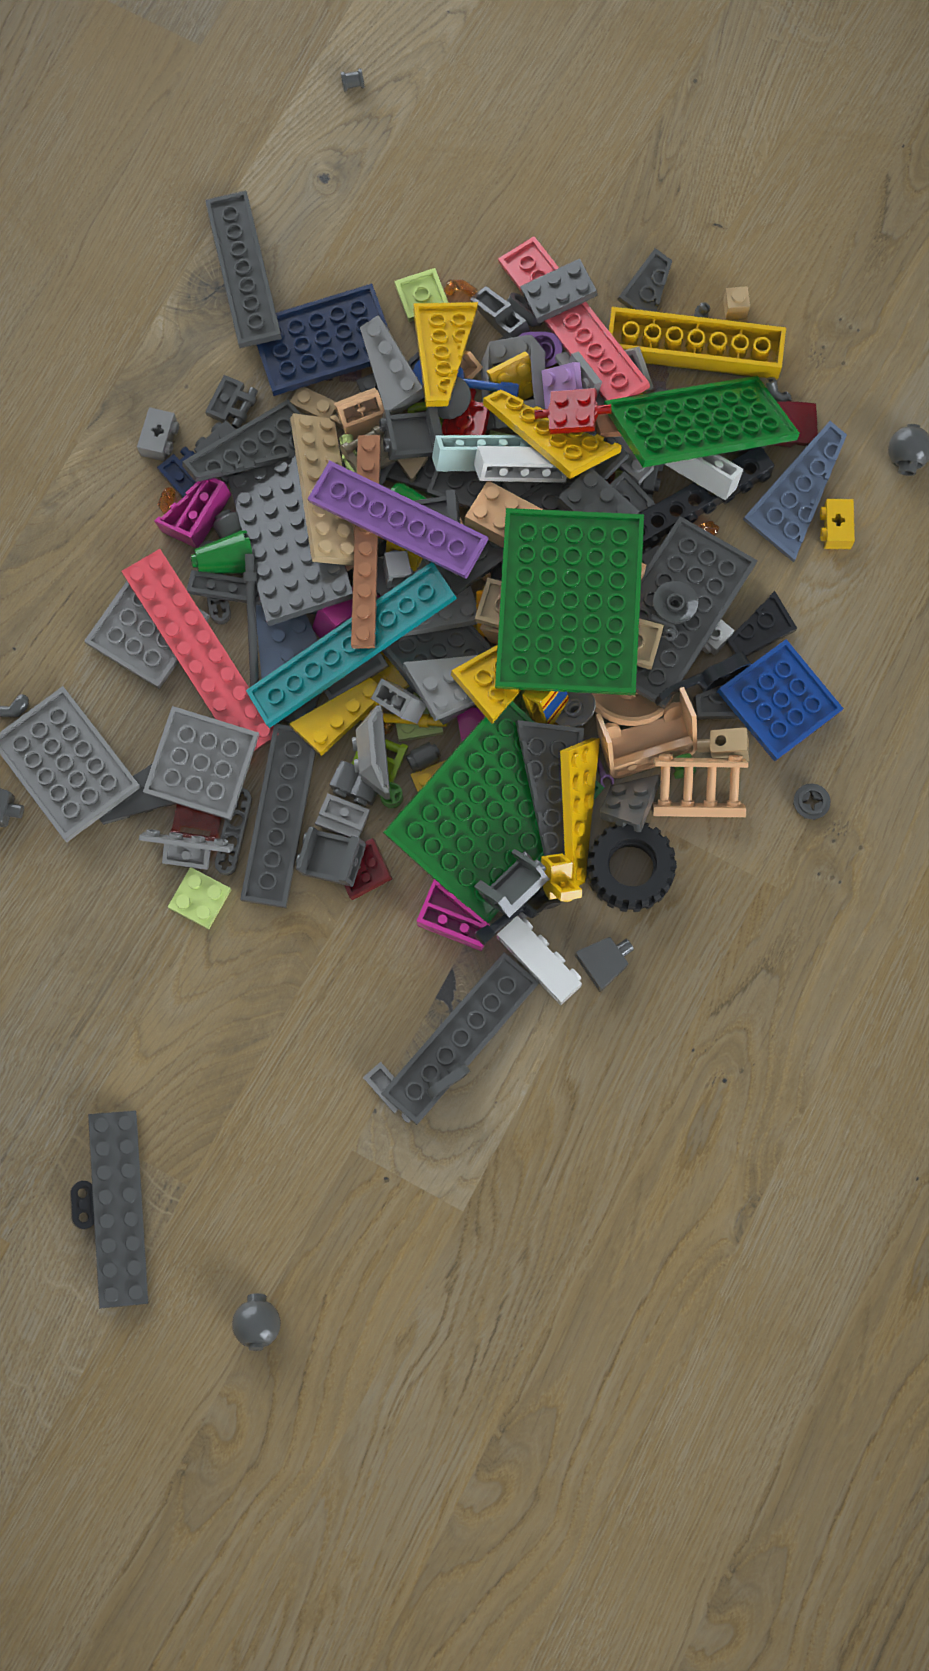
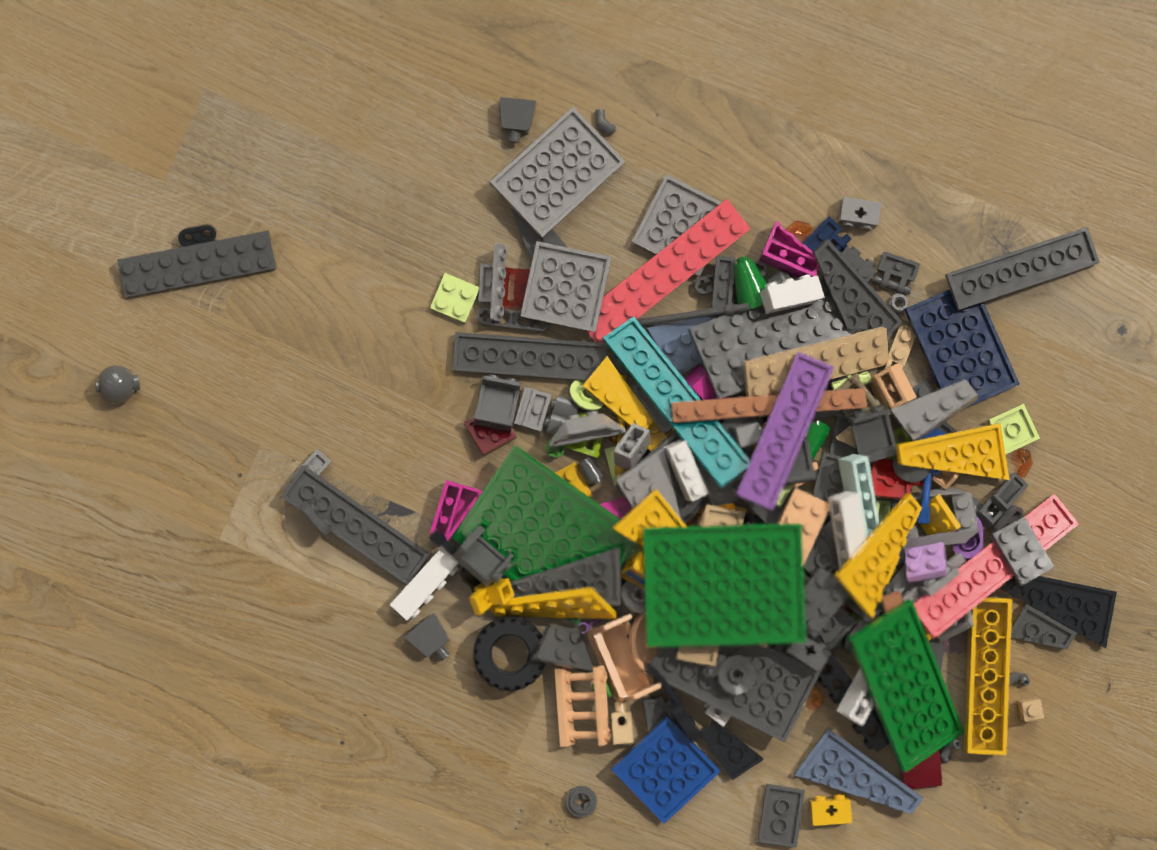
camera: 75 degrees right, 10 degrees up
(240, 507) = (791, 293): none -> white brick
(265, 397) = (902, 298): none -> light grey plate
(334, 755) = (583, 397): none -> yellowish green dish
(432, 640) = (685, 470): none -> white brick
(572, 411) = (899, 573): plate -> none
(623, 249) = (1075, 605): none -> black wing
(658, 523) = (813, 661): none -> dark grey brick
(840, 578) = (781, 815): none -> dark grey plate

